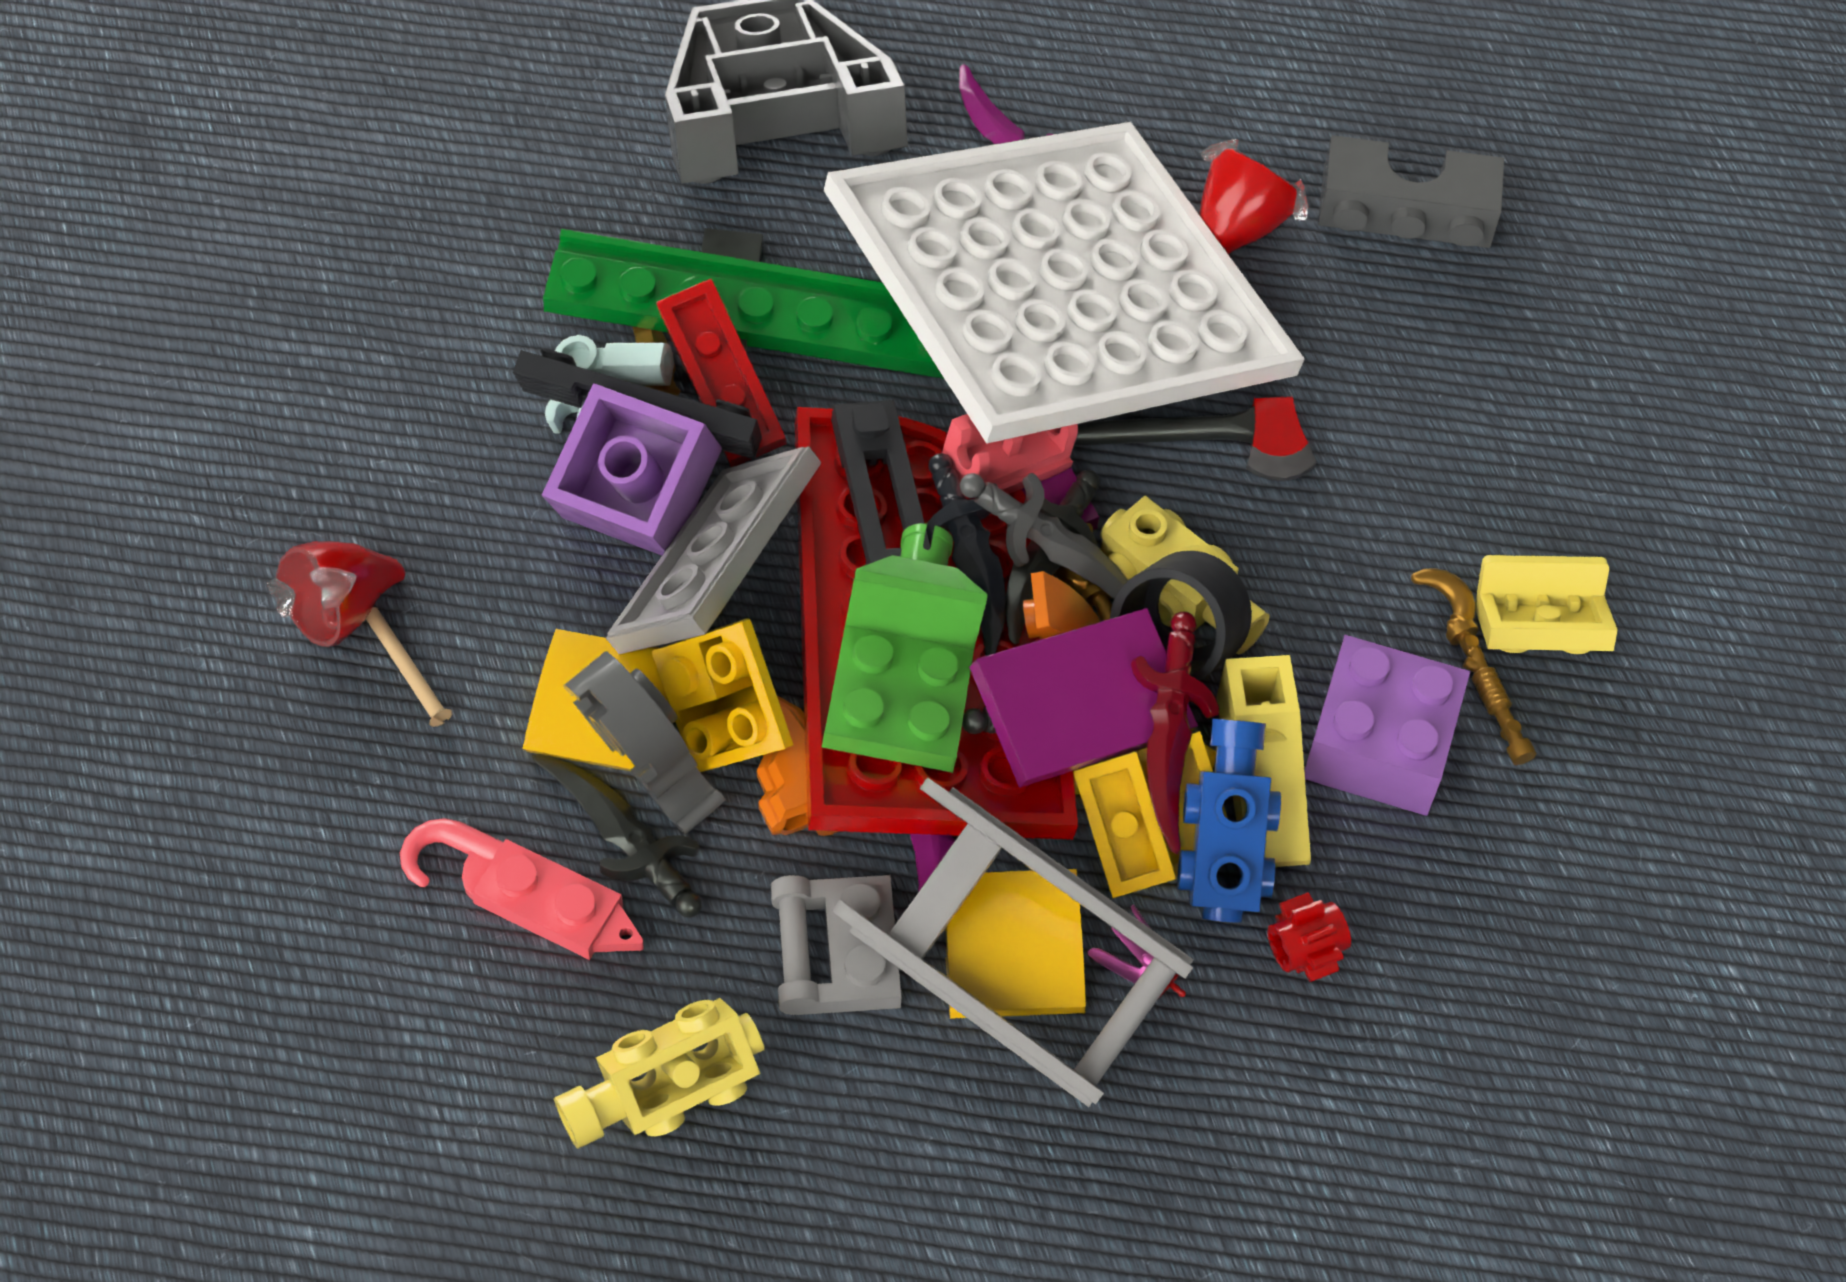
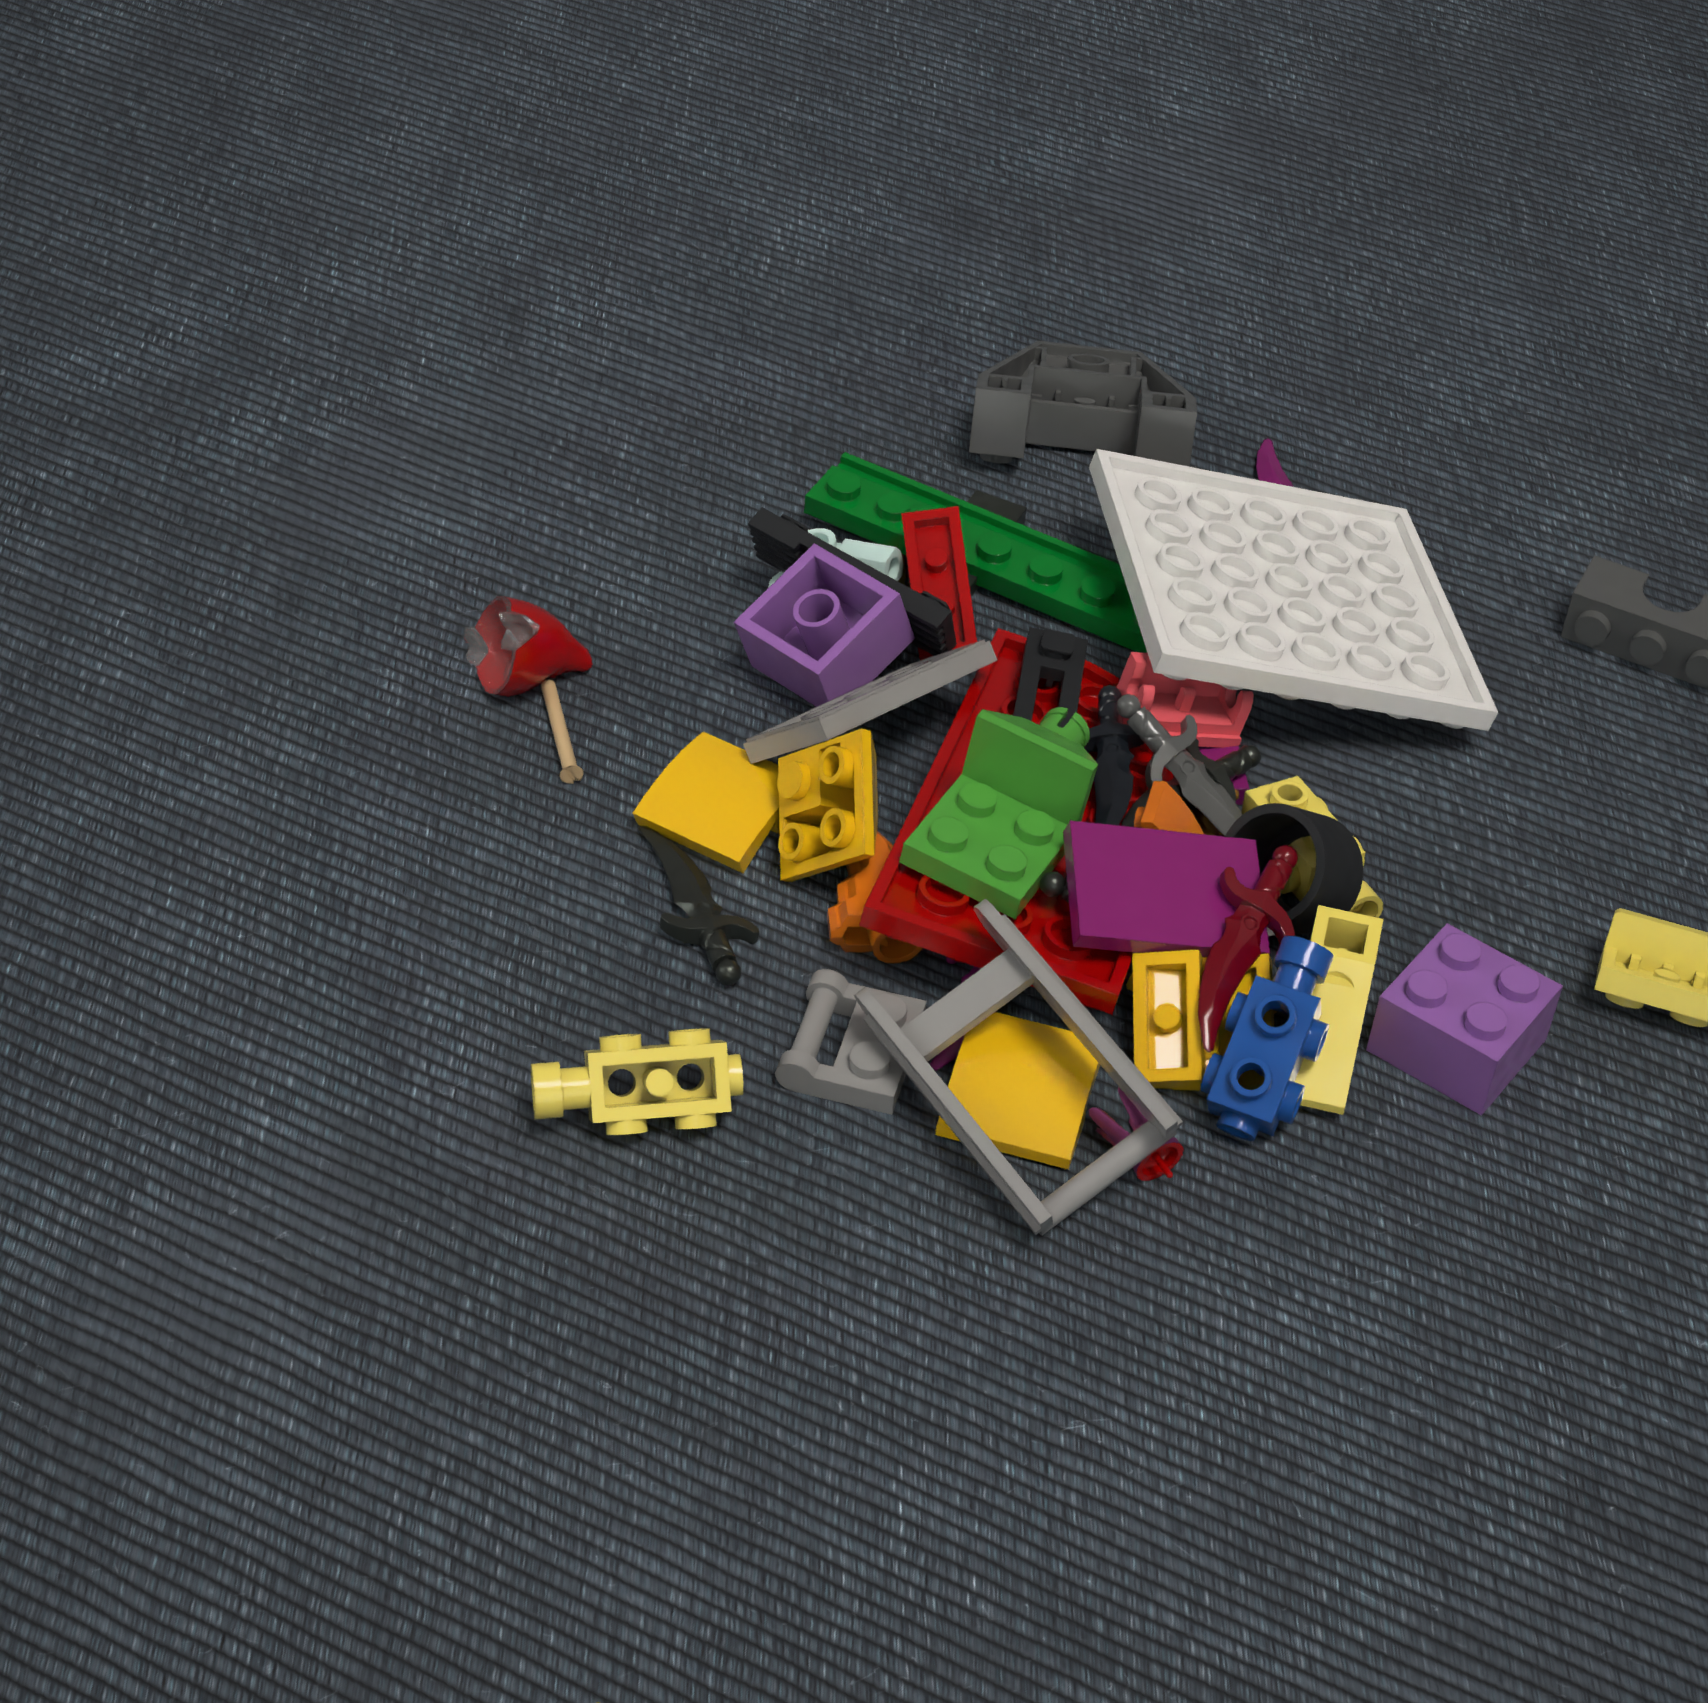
camera: 20 degrees right, 15 degrees down
(528, 889) = (589, 921): coral plate -> none
(639, 723) = (739, 801): dark grey piece -> none
(1245, 197) = (1493, 584): red hat -> none
(1271, 426) = (1447, 772): piece -> none
(1309, 936) = (1315, 1162): red gear -> none
(1462, 631) = (1576, 976): pearl gold piece -> none

